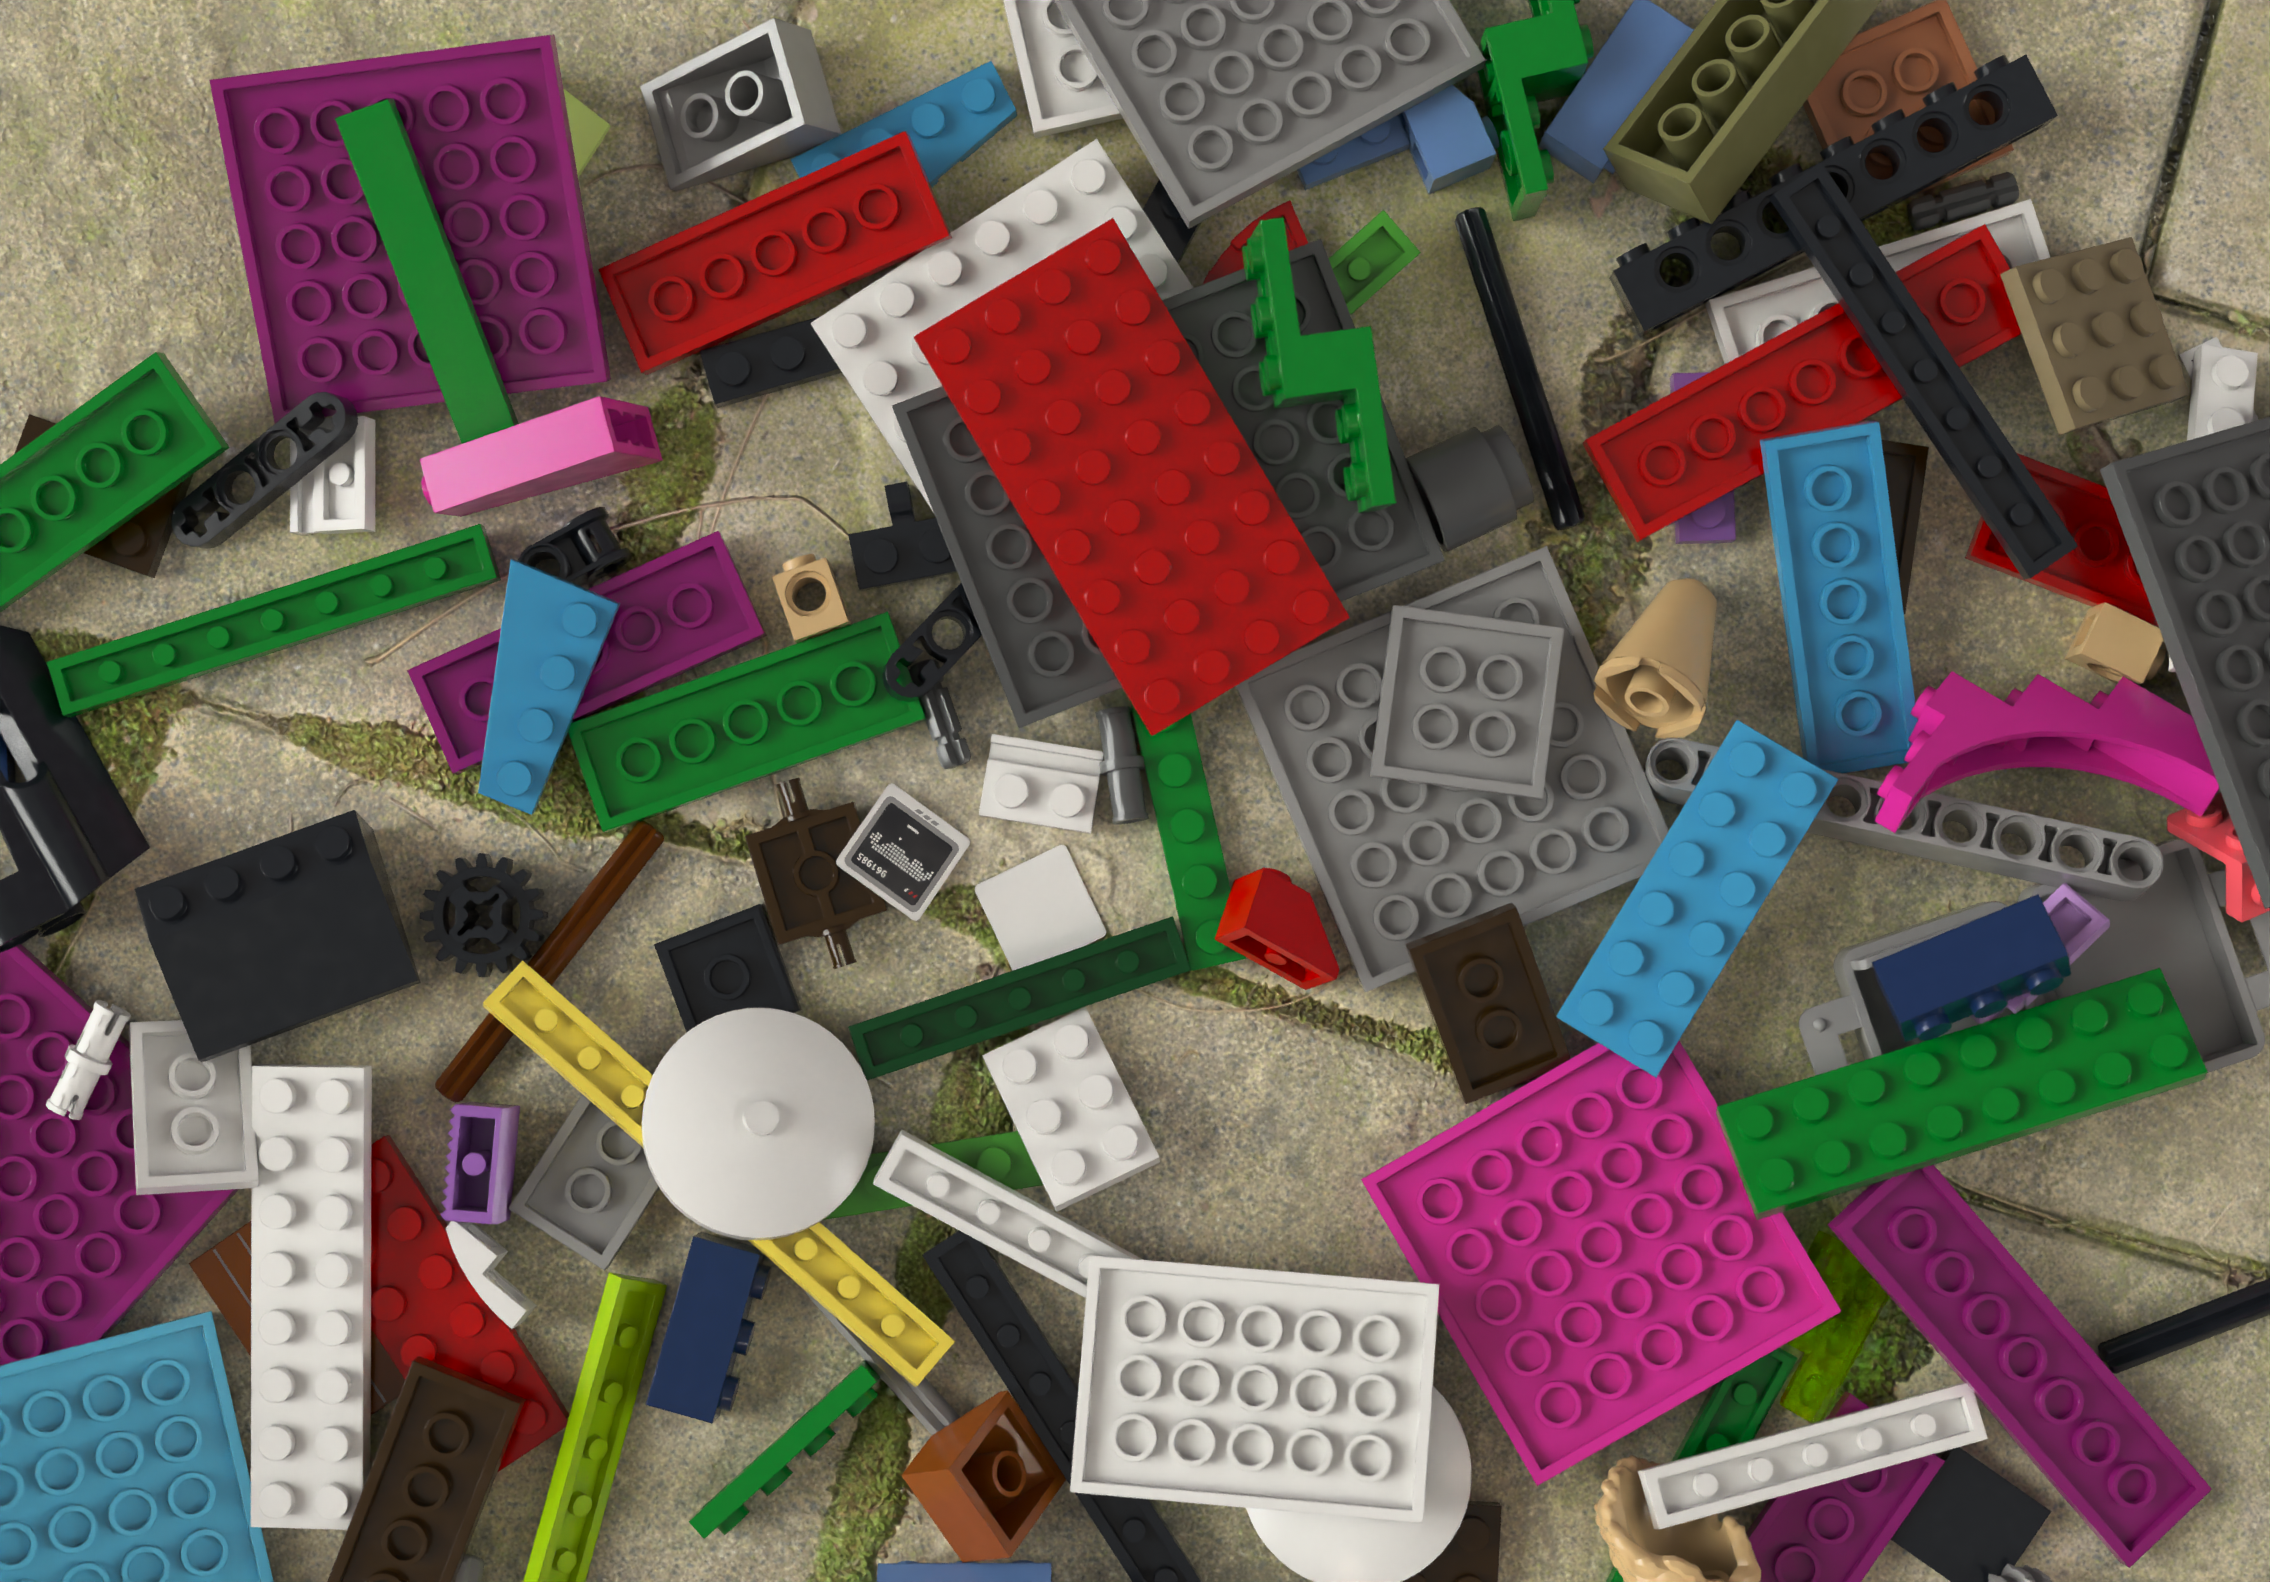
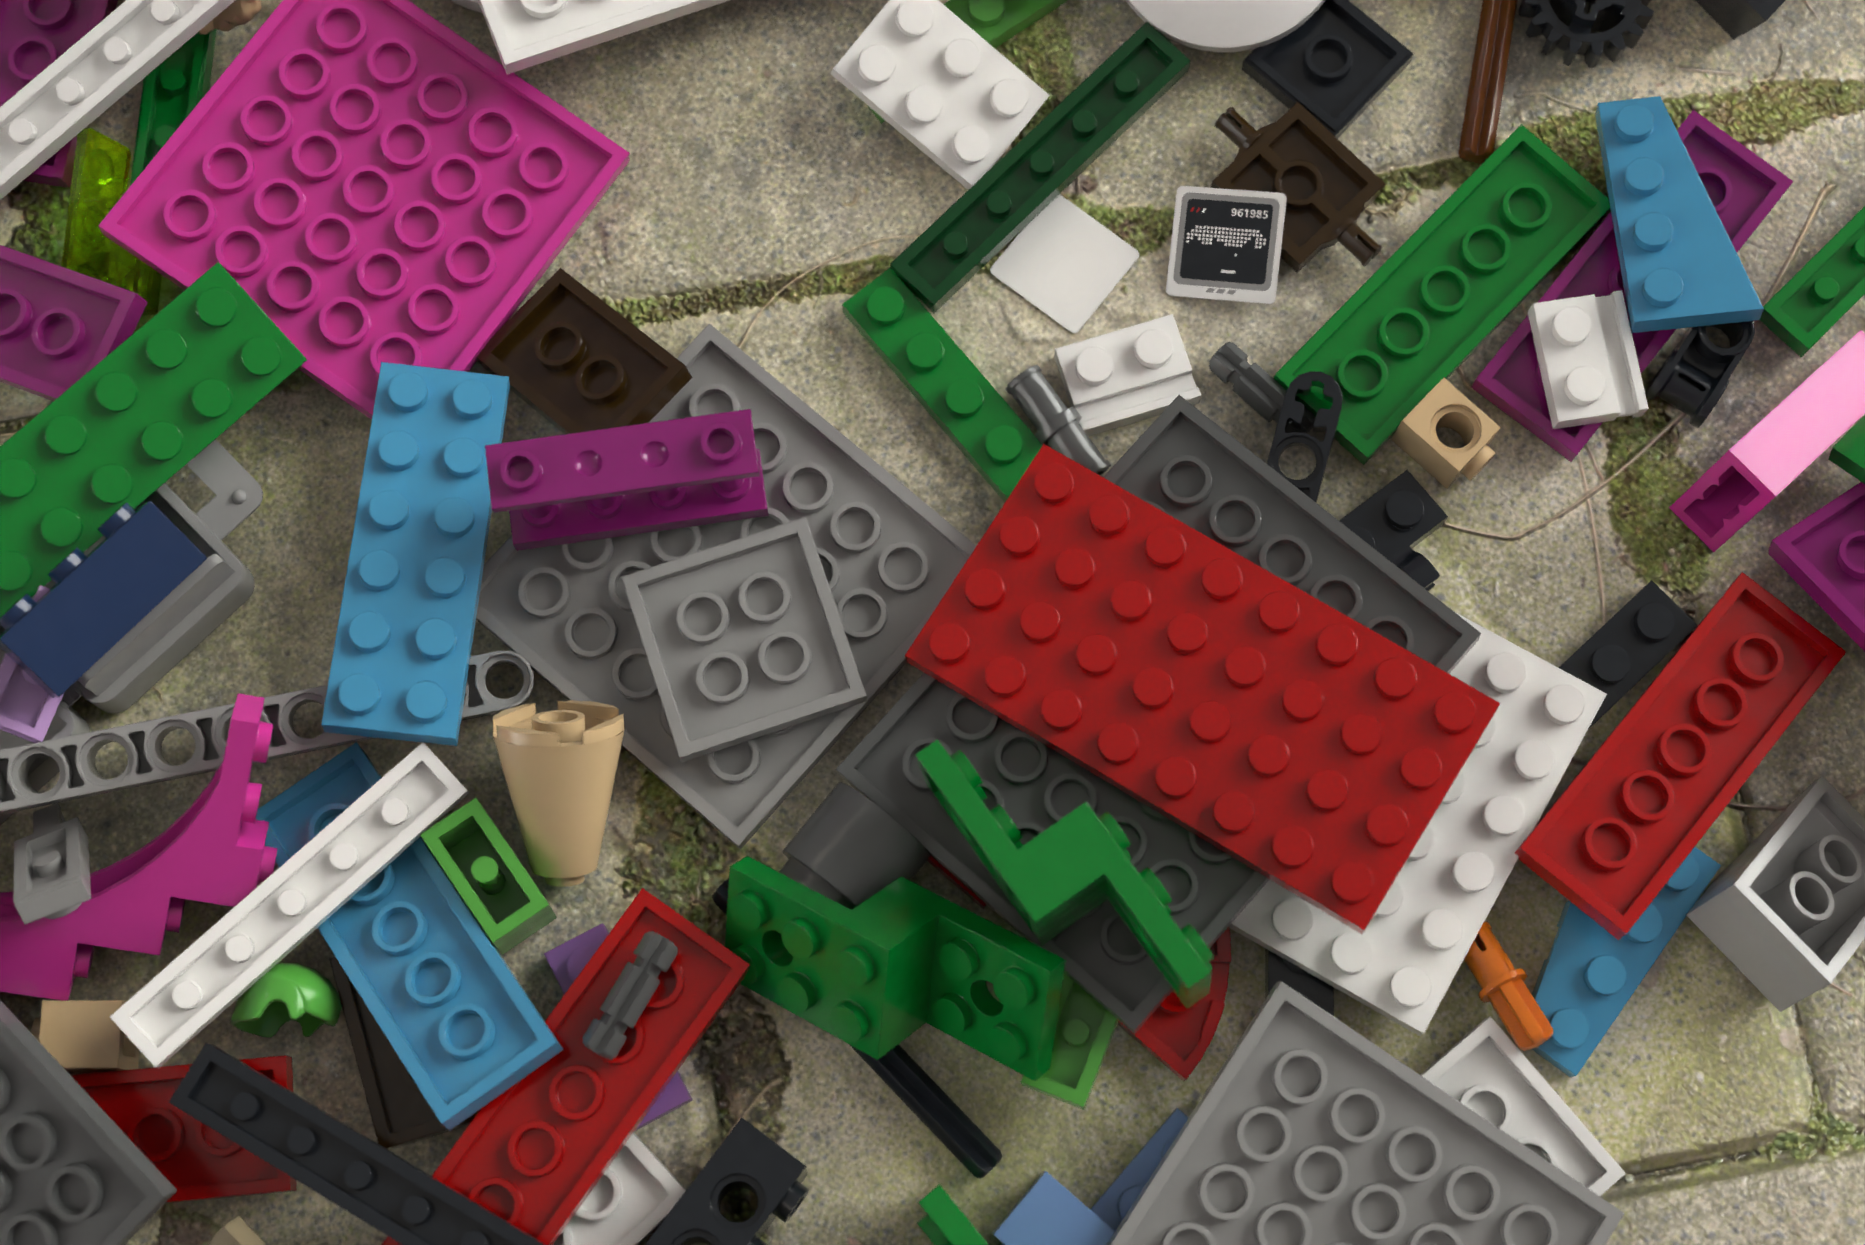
camera: 150 degrees right, 10 degrees down
(667, 600) = (1587, 359): none -> white plate
(1010, 143) = (1506, 991): none -> orange axle
(1278, 928) = (828, 341): red slope -> none
(1478, 380) = (894, 967): none -> green bracket
(1505, 862) = (628, 479): none -> magenta fence
(1689, 456) = (630, 995): none -> dark grey axle
(1754, 613) = (488, 876): none -> bright green brick
(1919, 655) = (288, 906): none -> white plate
(1949, 602) = (287, 995): none -> bright green hair
(2096, 774) = (51, 867): none -> light grey hinge

